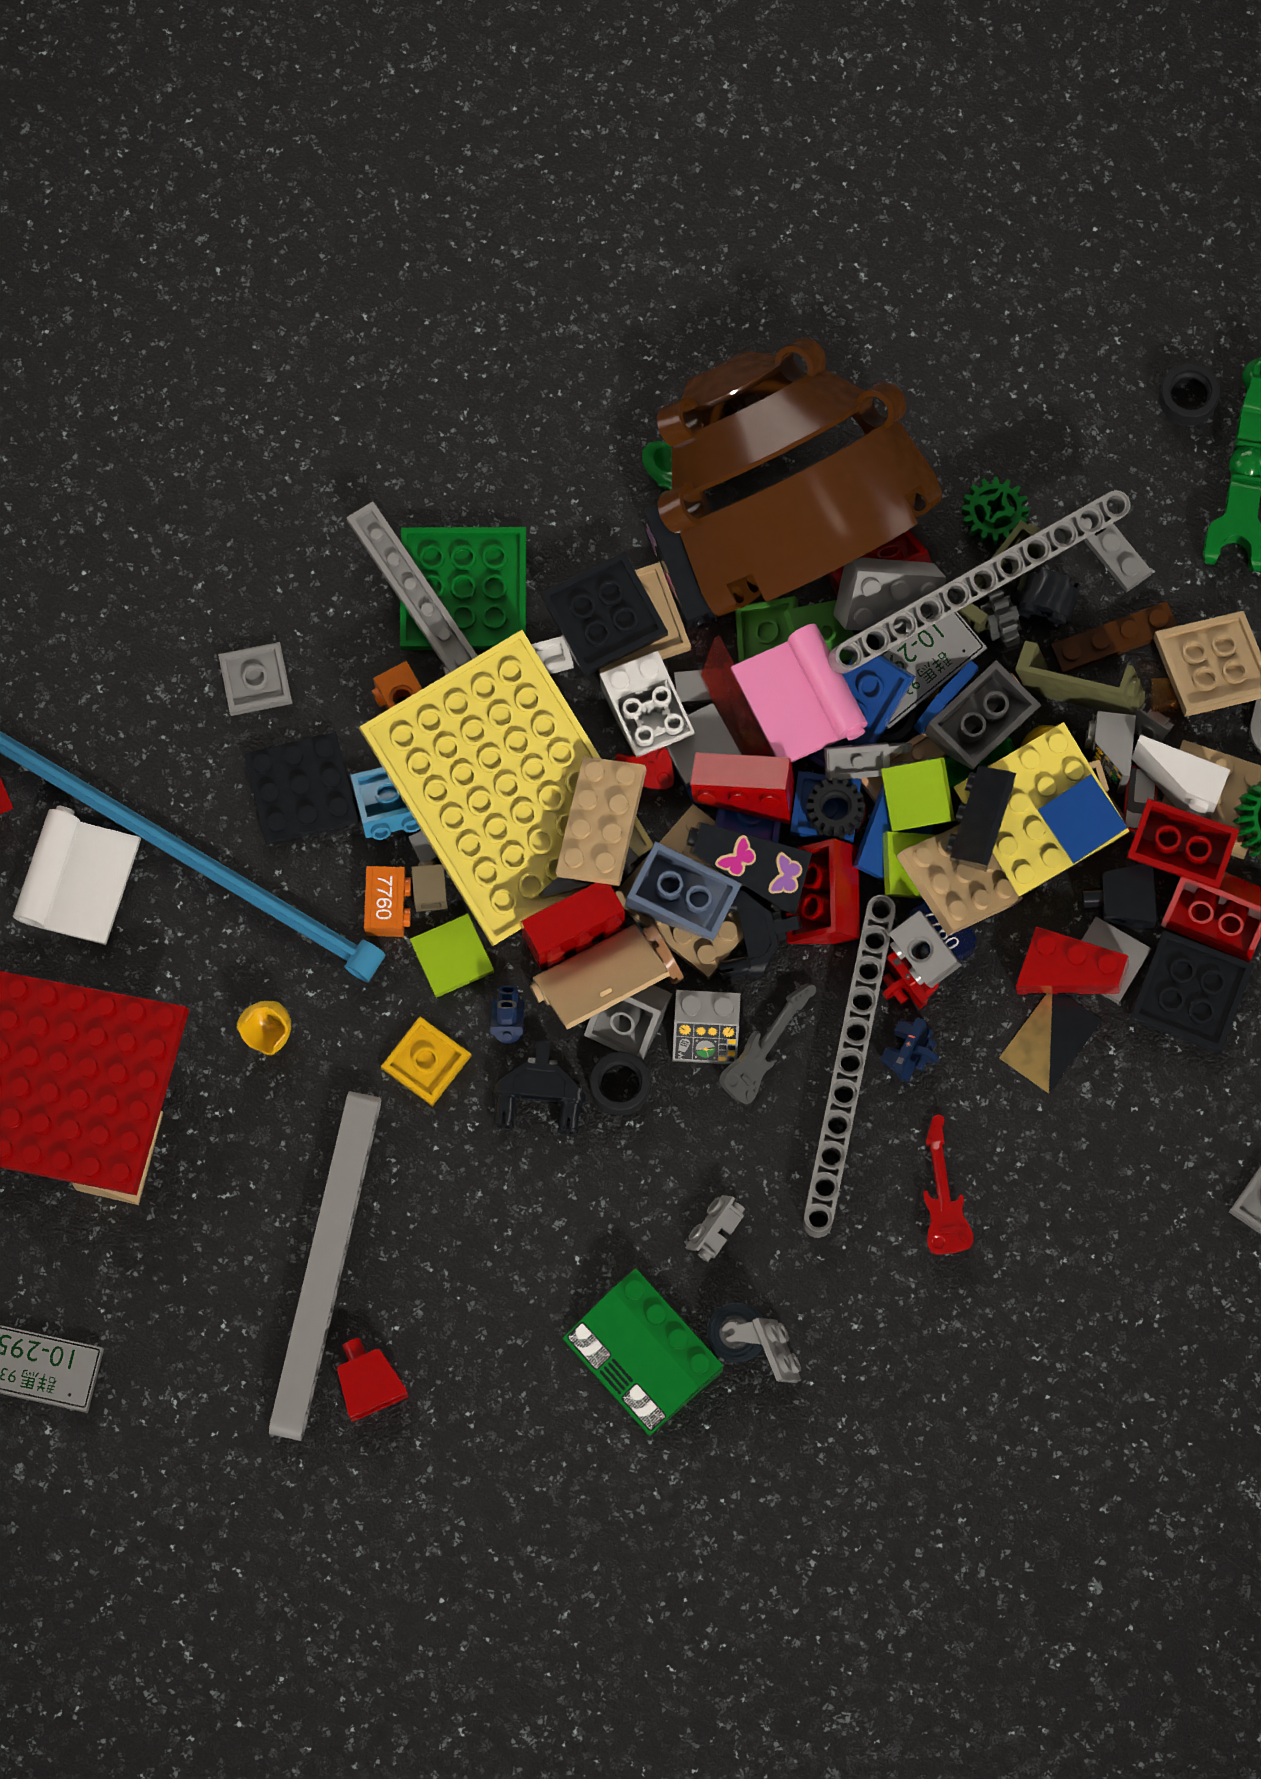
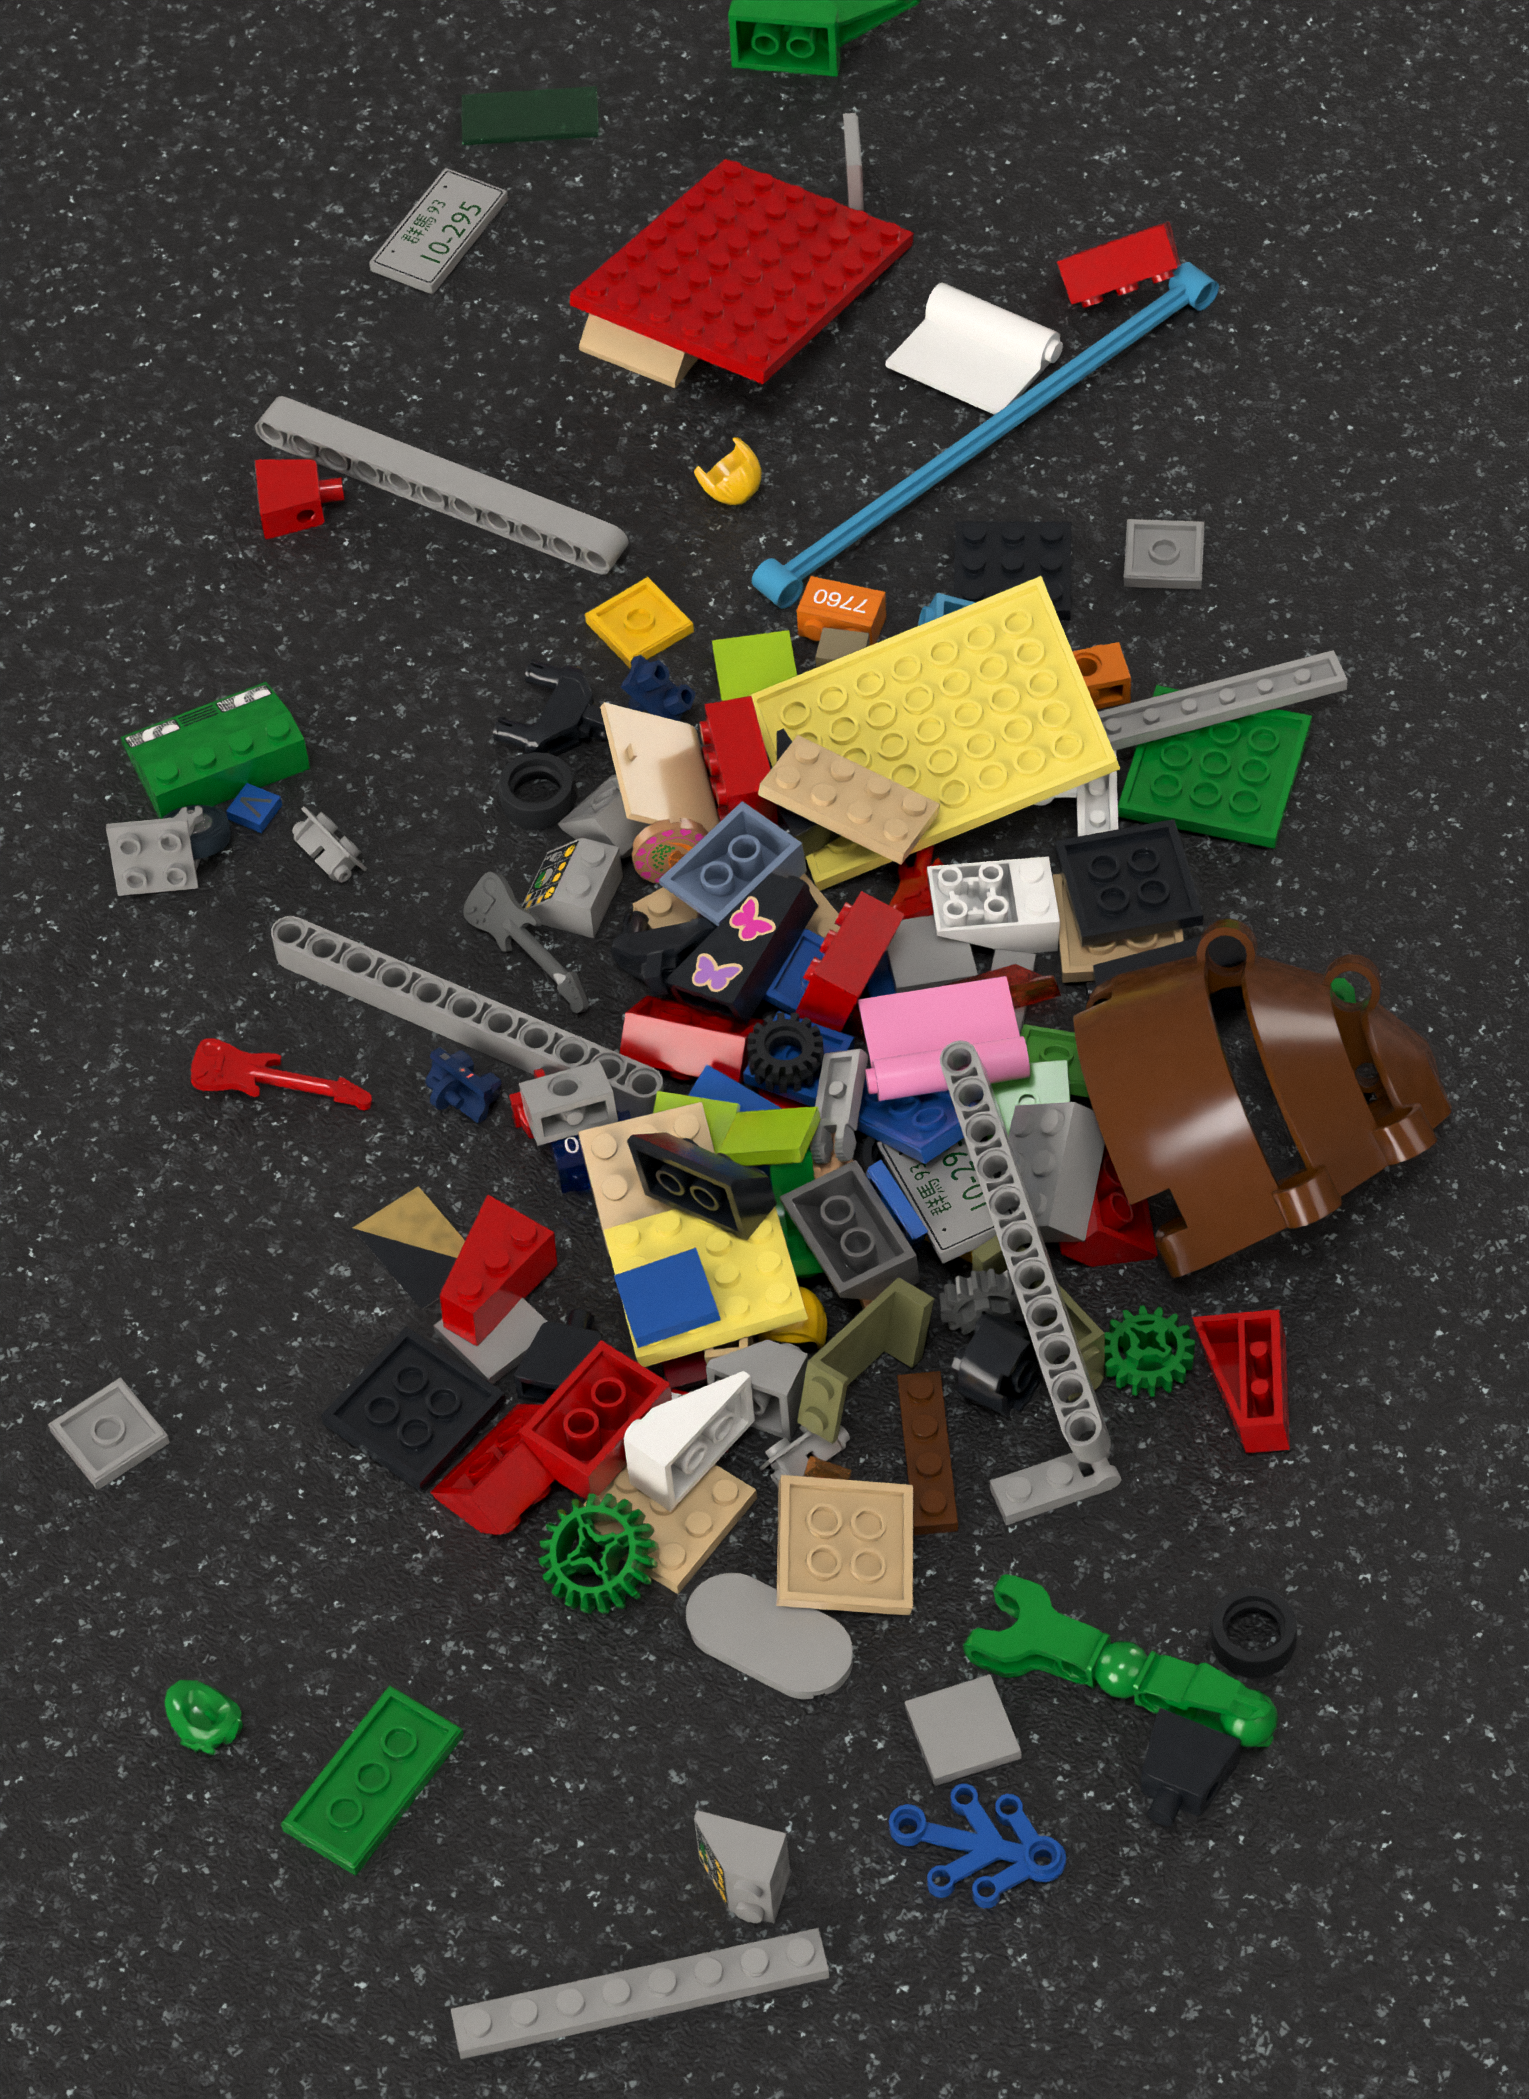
camera: 110 degrees right, 20 degrees down
(691, 1301) = (254, 808): none -> blue tile
(1000, 434) = (1251, 1373): none -> red wedge

